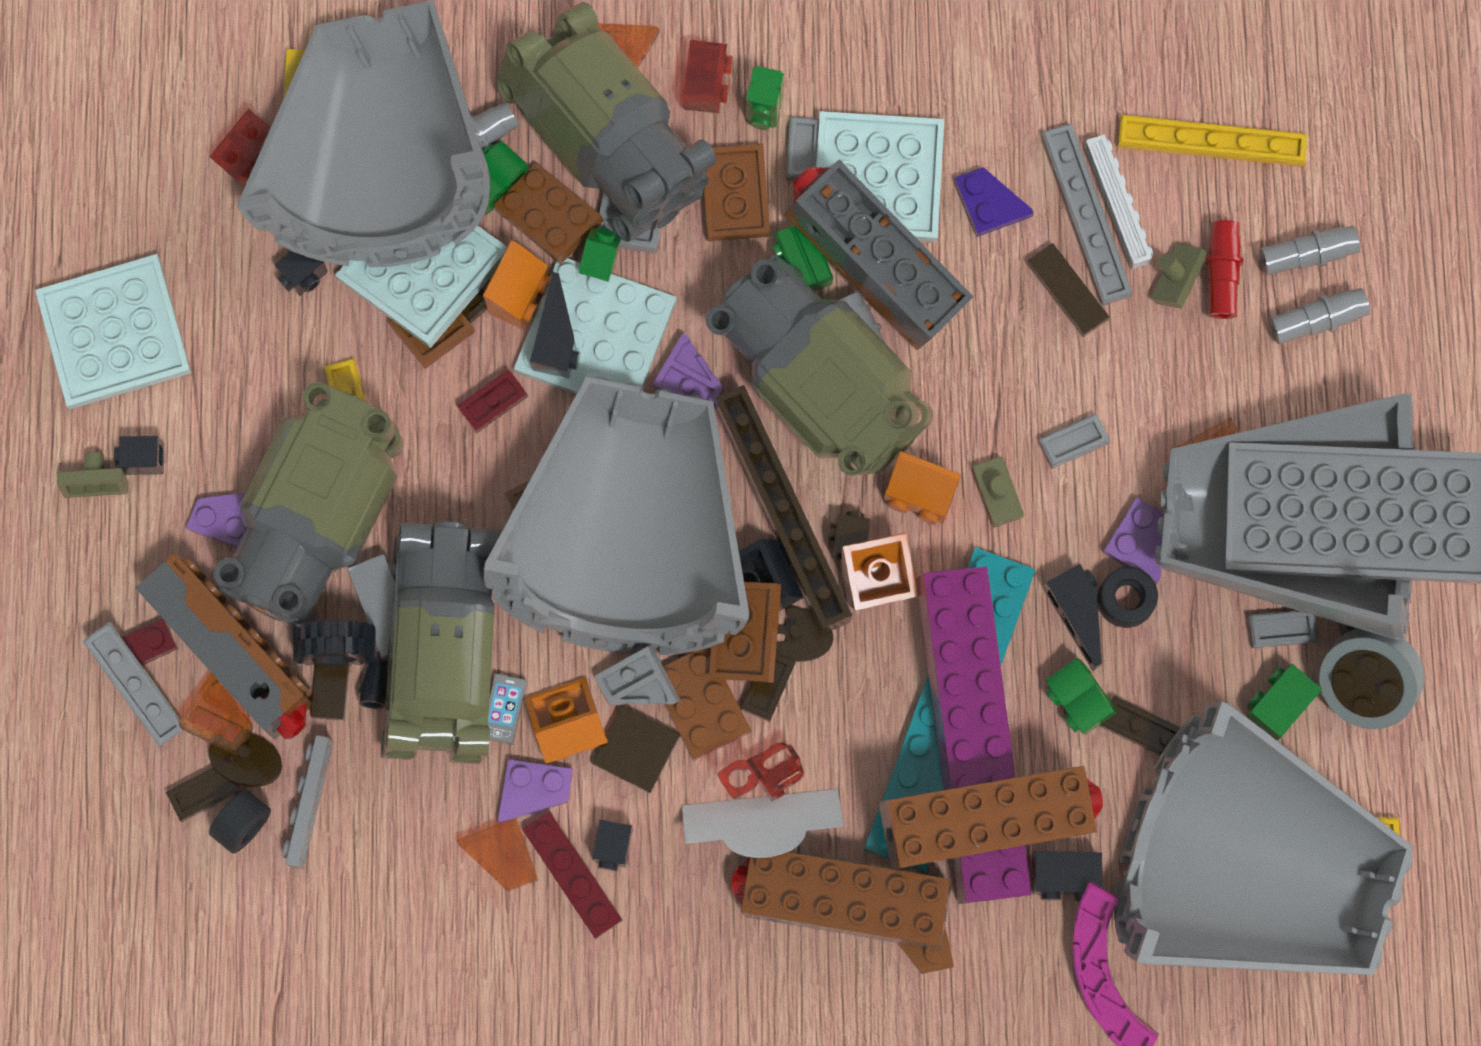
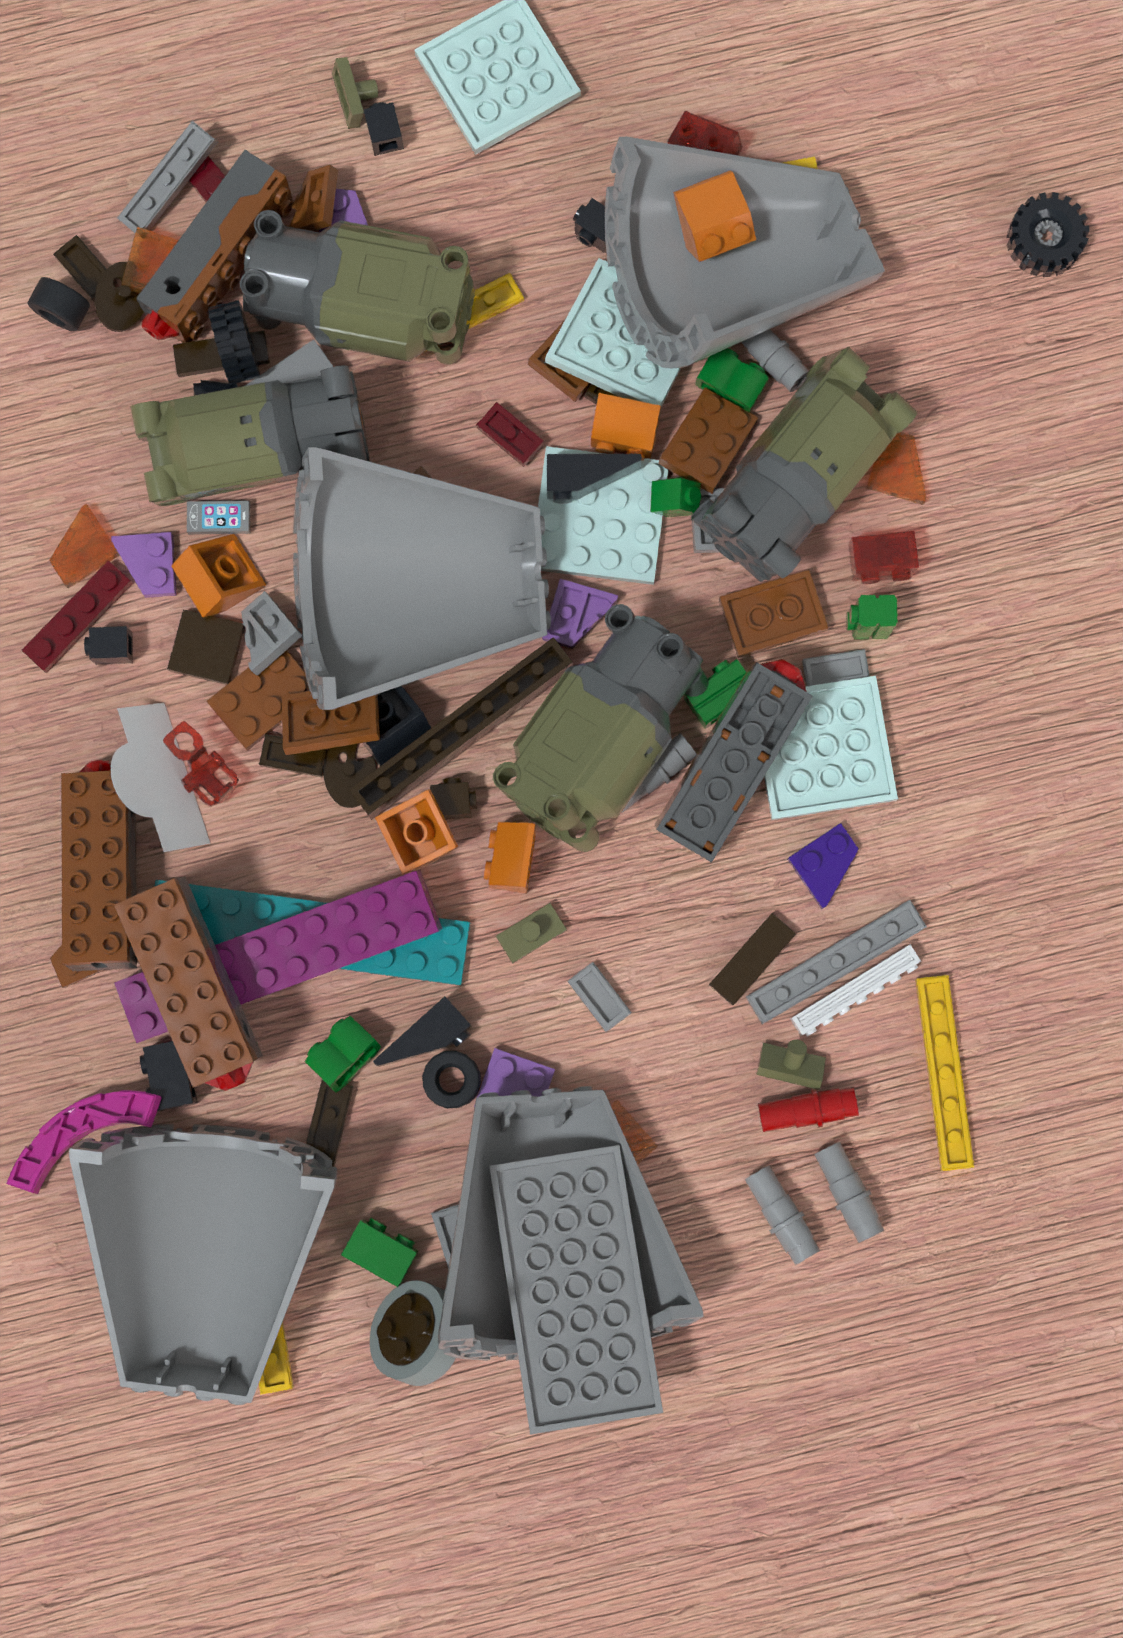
camera: 80 degrees right, 5 degrees up
(200, 537) = (315, 200): none -> dark orange wing
(304, 816) = (84, 363): light grey plate -> none
(332, 147) = (714, 216): none -> orange slope

